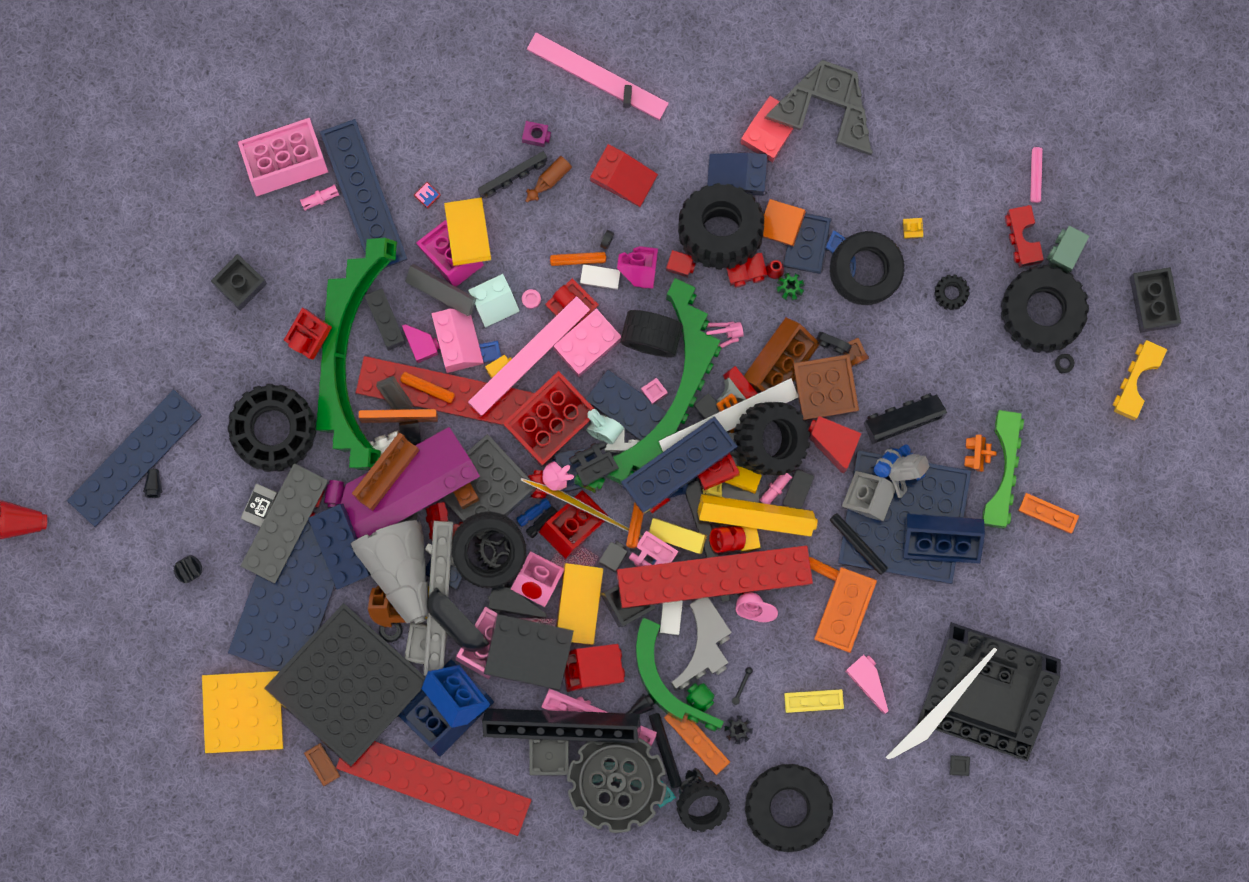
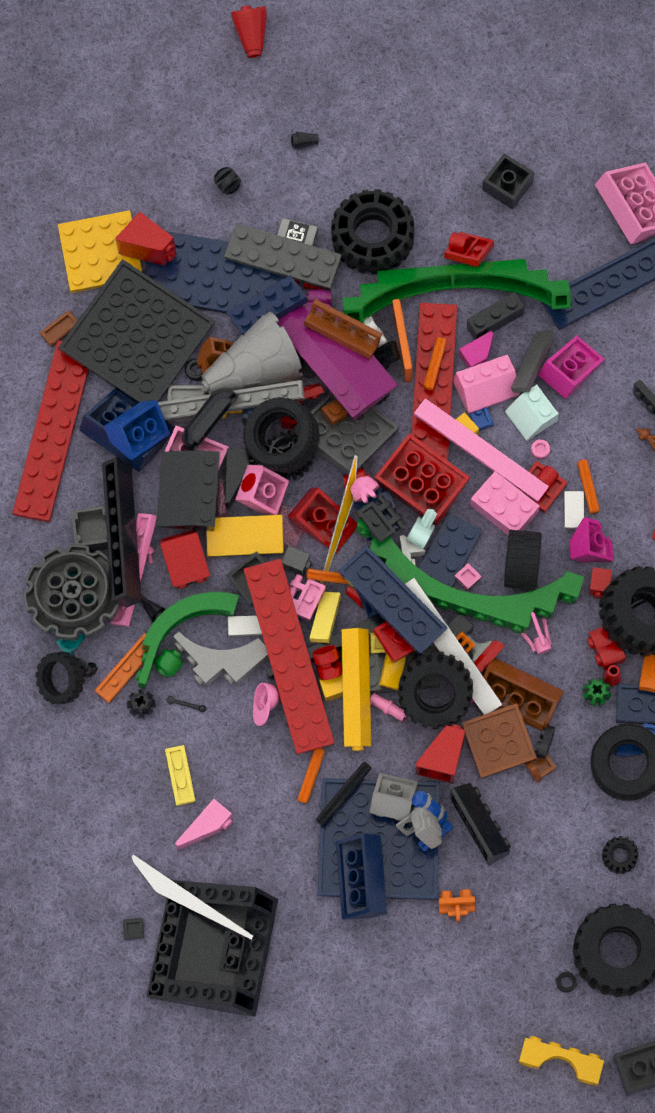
camera: 90 degrees right, 10 degrees down
(134, 458) = (327, 121): dark blue plate -> none
(248, 659) = (146, 241): none -> red slope
(319, 197) = (604, 241): bright pink pin -> none
(394, 394) = (422, 334): dark grey tile -> none
(427, 195) = (625, 338): tile -> none
(467, 231) = (594, 375): yellow tile -> none
(533, 512) = (329, 482): blue axle -> none
(533, 530) = (311, 483): black axle -> none
(607, 239) = (612, 509): black tile -> none
(665, 750) = (112, 639): black axle -> none
(798, 489) = (390, 730): black tile -> none
(818, 808) = (59, 735): black tyre -> none
(845, 609) = (276, 792): orange tile -> none
(1007, 430) = (486, 930): bright green arch -> none
(1048, 513) = (405, 984): orange plate -> none

